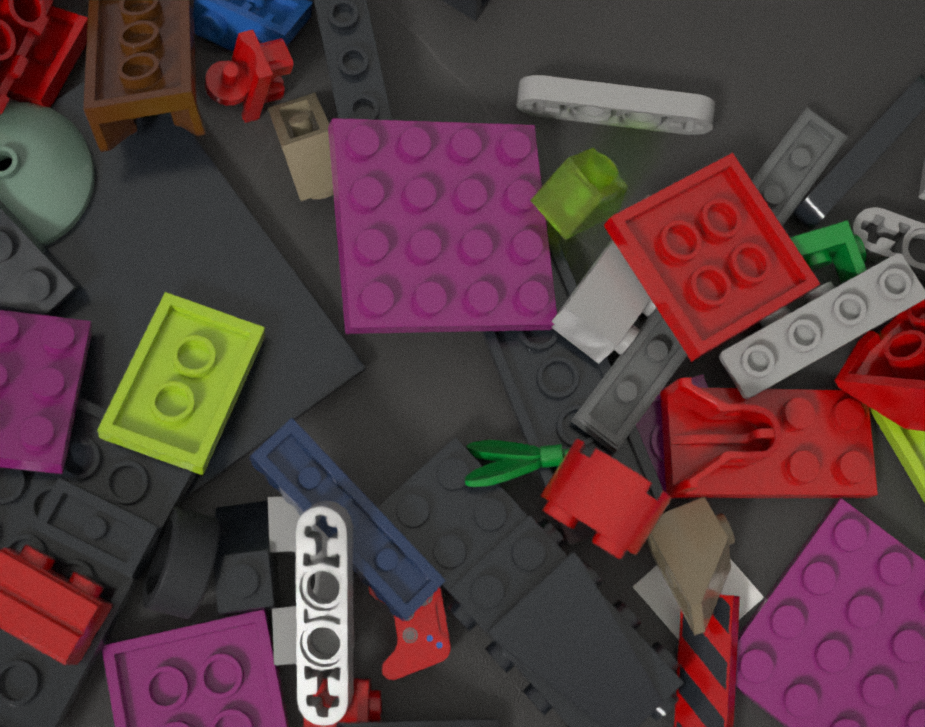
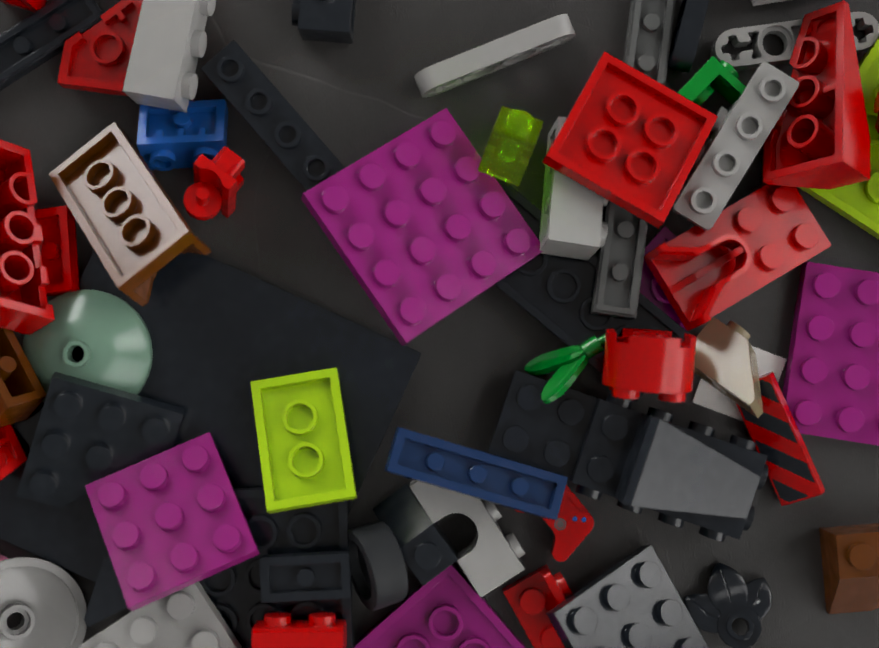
camera: 25 degrees left, 10 degrees up
(305, 144) = (283, 212): dark tan slope -> none
(329, 613) = (502, 545): beam -> none

